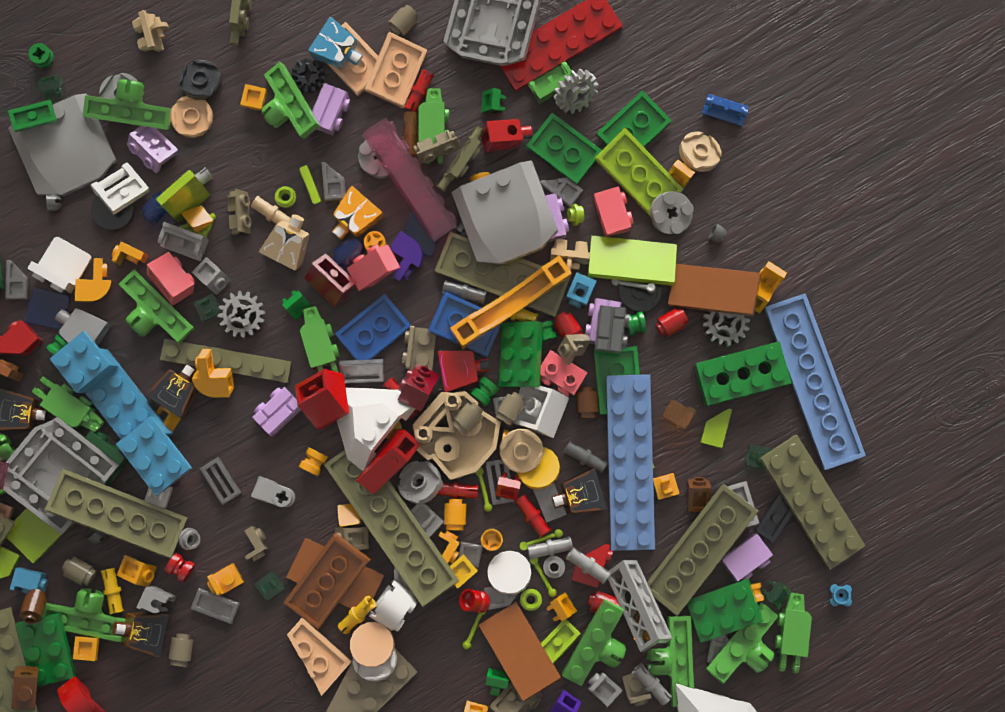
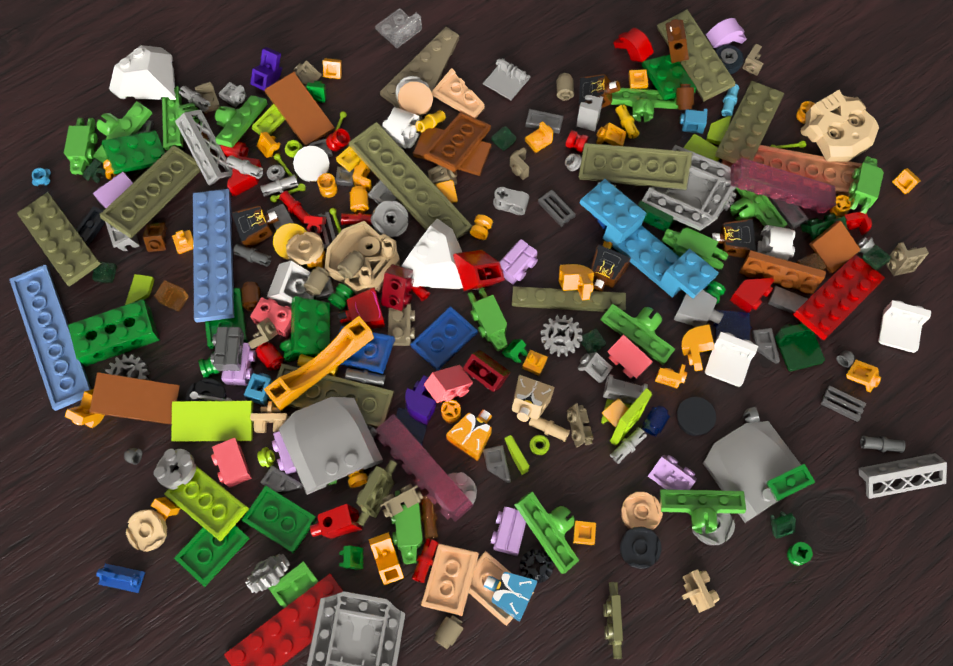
camera: 175 degrees right, 15 degrees down
(78, 571) = (656, 130): dark tan brick -> none
(124, 192) = (688, 427): white plate -> none
(253, 673) = (506, 79): none -> light grey hinge
(276, 290) = (534, 362): none -> light orange tile
(347, 252) = (474, 399): clear blue brick -> none
(362, 370) = (449, 301): flat silver tile -> none
(388, 460) = (413, 227): red slope -> none
(456, 93) = (386, 558): none -> light orange brick
(671, 322) = (176, 370): red brick -> none

